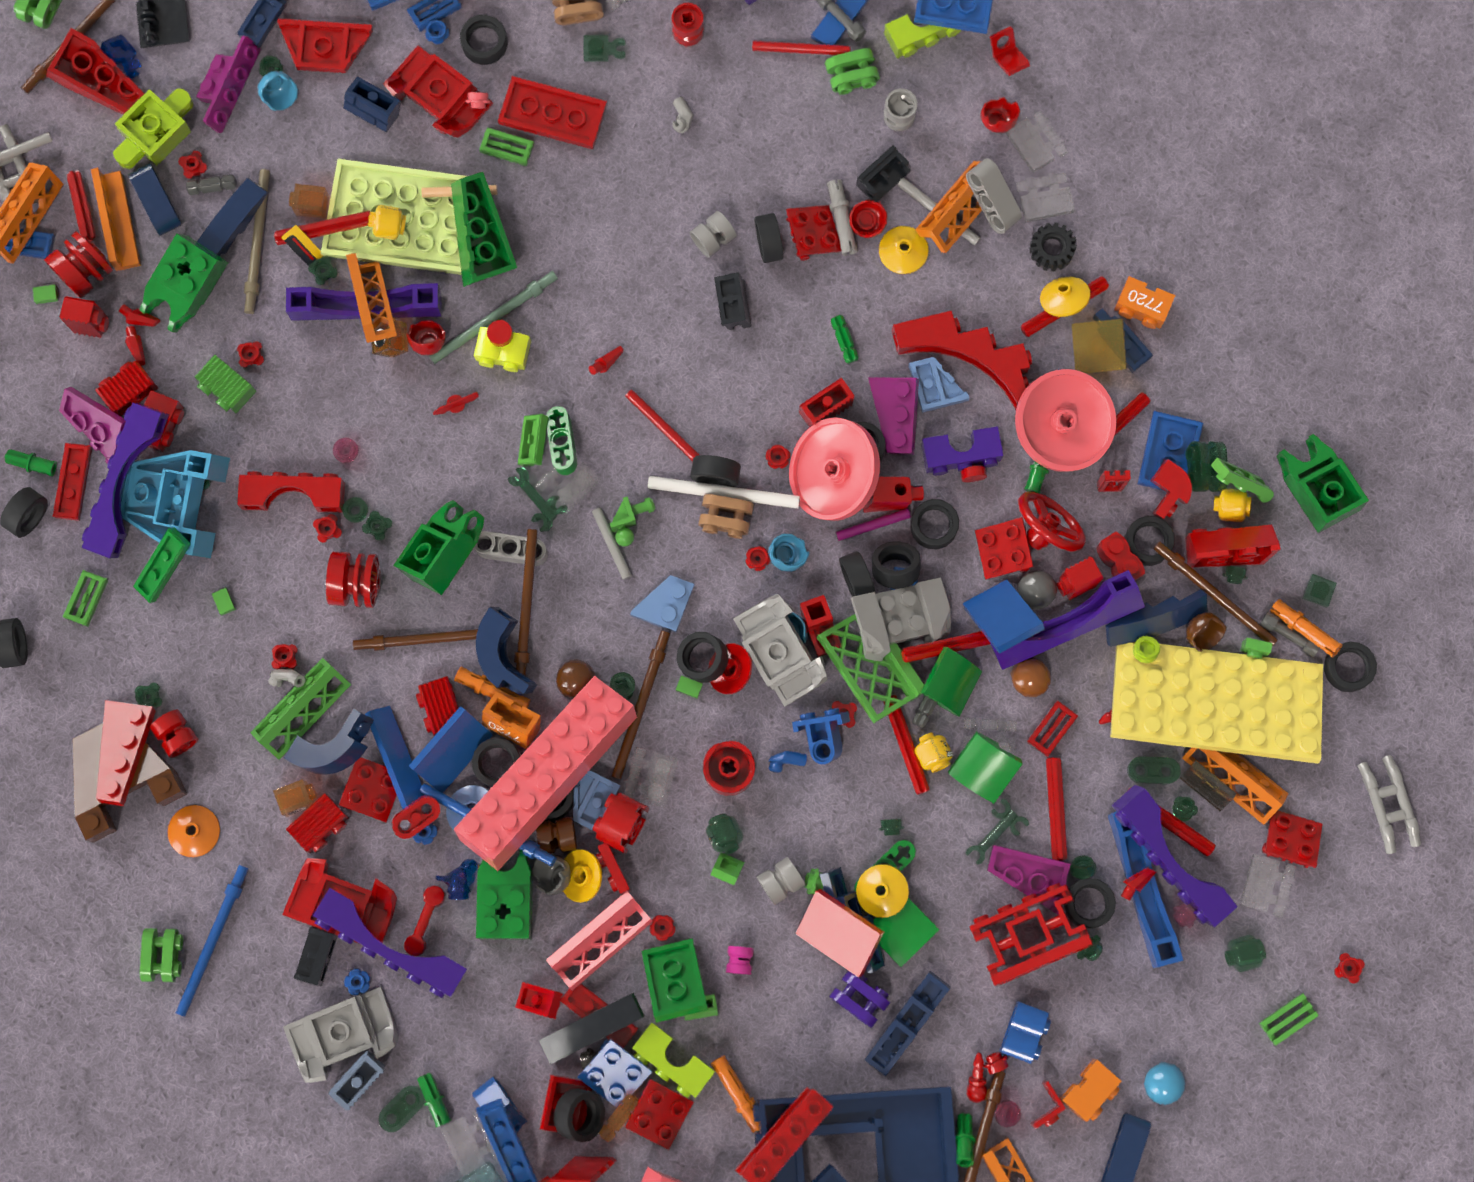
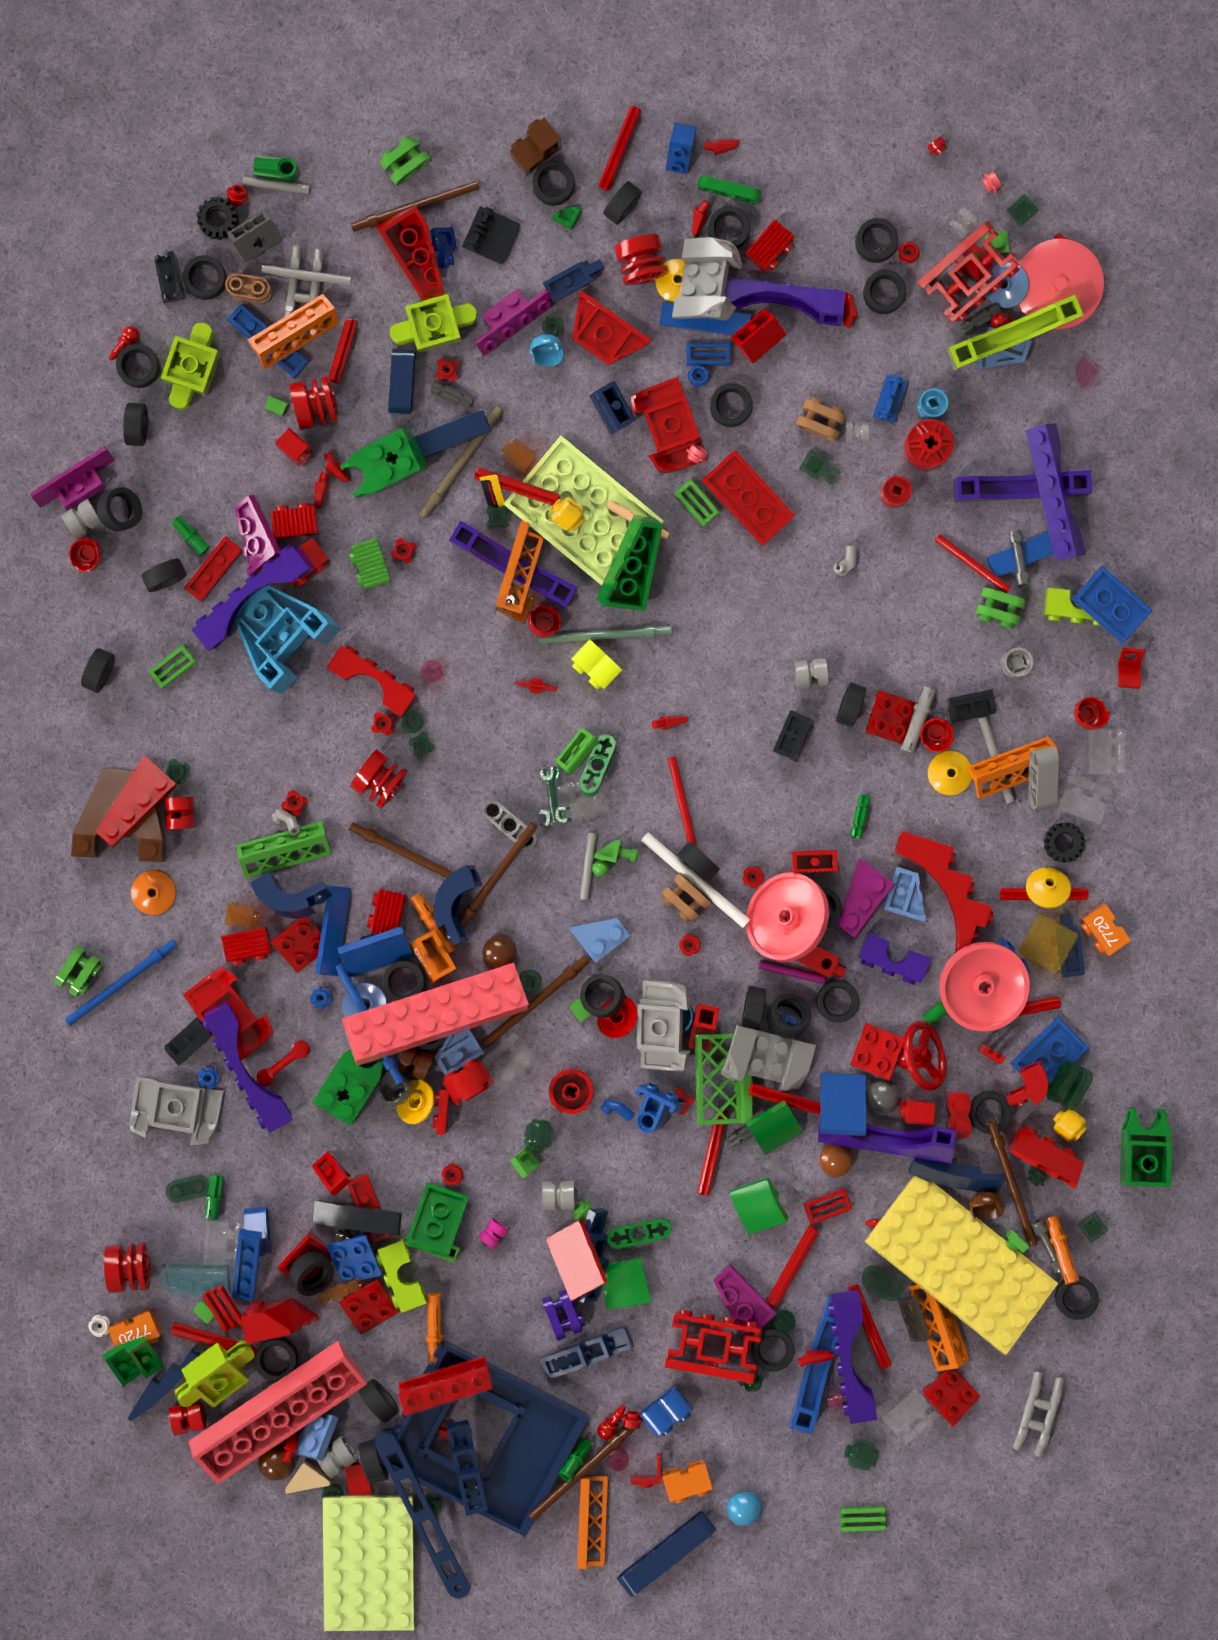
camera: 30 degrees right, 10 degrees up
(116, 219) = (363, 379): orange fence -> none
(162, 565) = (243, 680): green tile -> none
(223, 601) = (273, 732): bright green piece -> none
(357, 1080) = (167, 1150): sand blue brick -> none
(416, 817) = (321, 986): red plate -> none
(440, 548) = (458, 794): green brick -> none
(460, 880) = (326, 1050): clear blue animal -> none
(500, 333) = (600, 655): red tile -> none
(593, 934) = (400, 1149): coral fence -> none
(788, 552) = (714, 956): dark azure hair -> none
(891, 826) = (663, 1205): clear green plate -> none
(896, 891) = (638, 1247): yellow dish -> none
(933, 752) = (728, 1171): yellow head -> none
(973, 474) = (891, 981): red tile -> none
(1008, 818) = (753, 1251): clear green bar -> none
(1146, 649) = (933, 1193): lime tile -> none
(1181, 812) = (881, 1324): clear green plate -> none
(1242, 479) = (1087, 1112): bright green plate -> none
(1356, 965) = (934, 1515): red plate -> none

